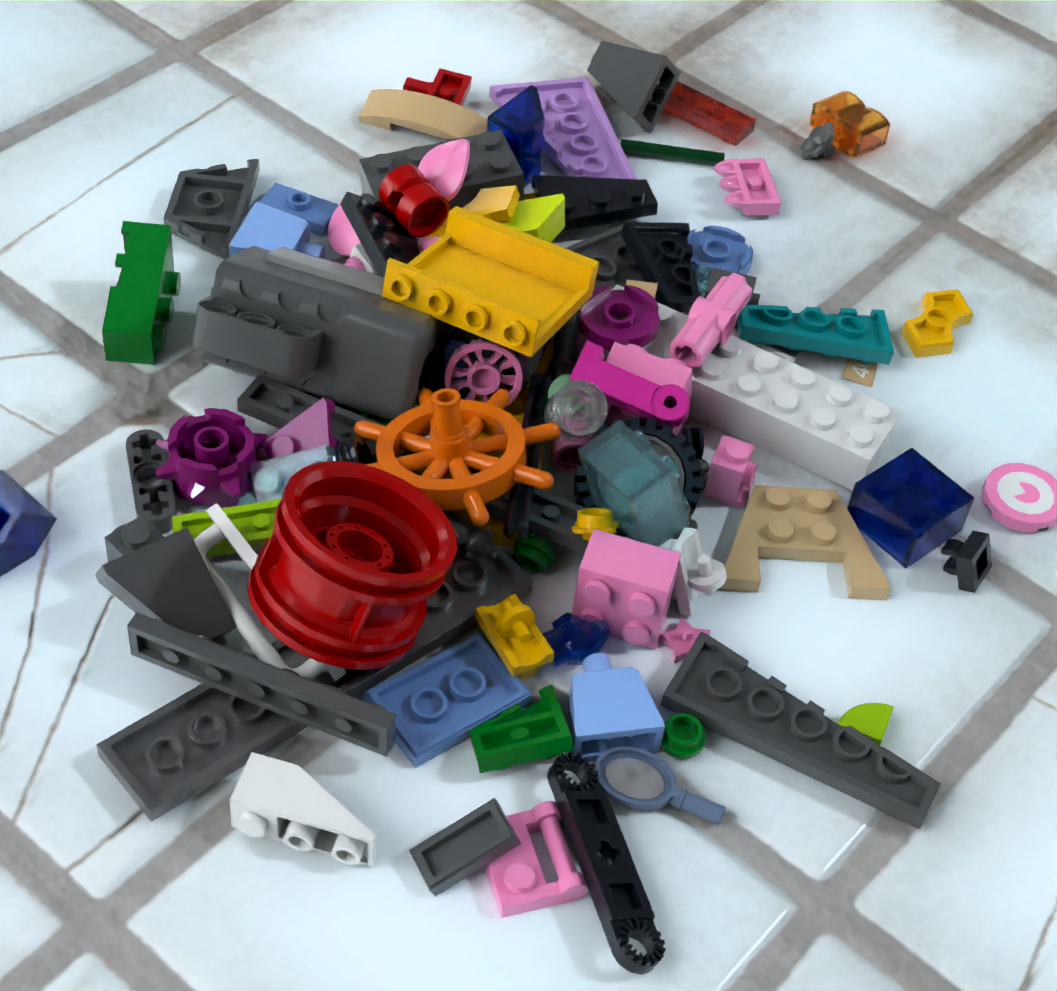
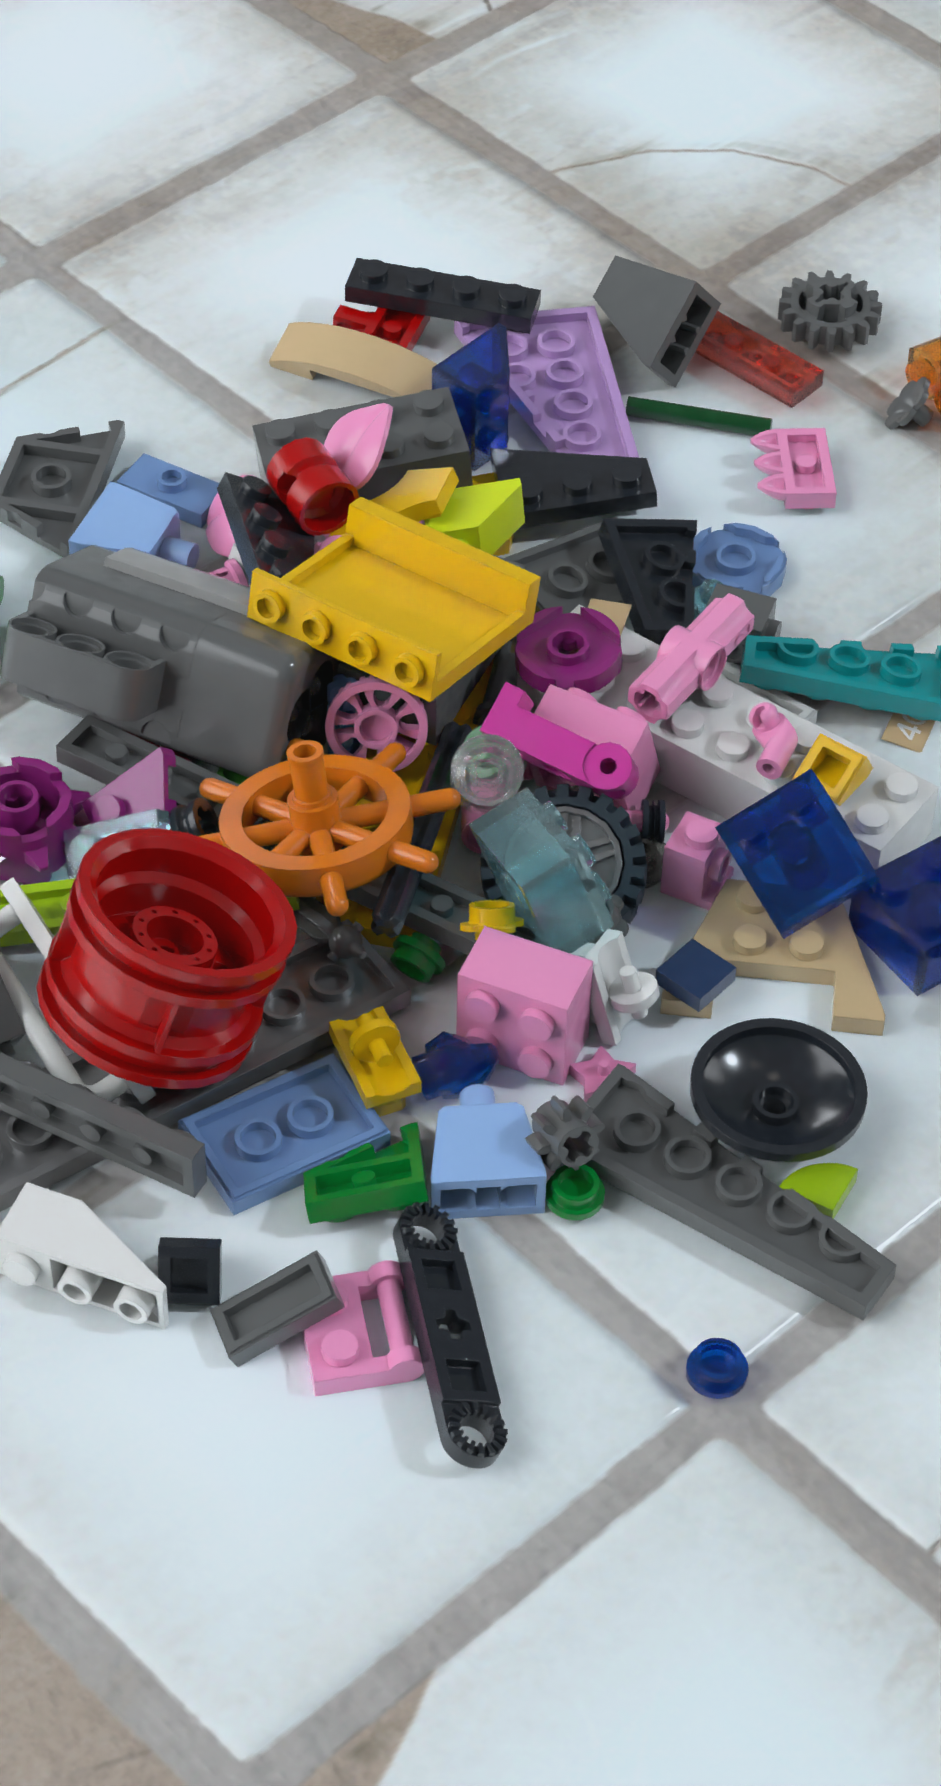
camera: 10 degrees right, 0 degrees up
(391, 817) = (191, 1270): none -> black tile
(479, 69) = (442, 295): none -> black plate
(648, 783) = (521, 1245): sand blue piece -> none
(675, 690) = (565, 1133): none -> dark grey gear
(747, 559) = (695, 975): none -> dark blue tile
(751, 79) = (826, 310): none -> dark grey gear
(782, 377) = (775, 736): none -> bright pink arm
(813, 464) = (797, 853): none -> clear blue slope
(817, 876) = (717, 1368): none -> clear blue plate
(827, 400) = (837, 767): none -> yellow slope
(828, 648) = (778, 1090): none -> black dish

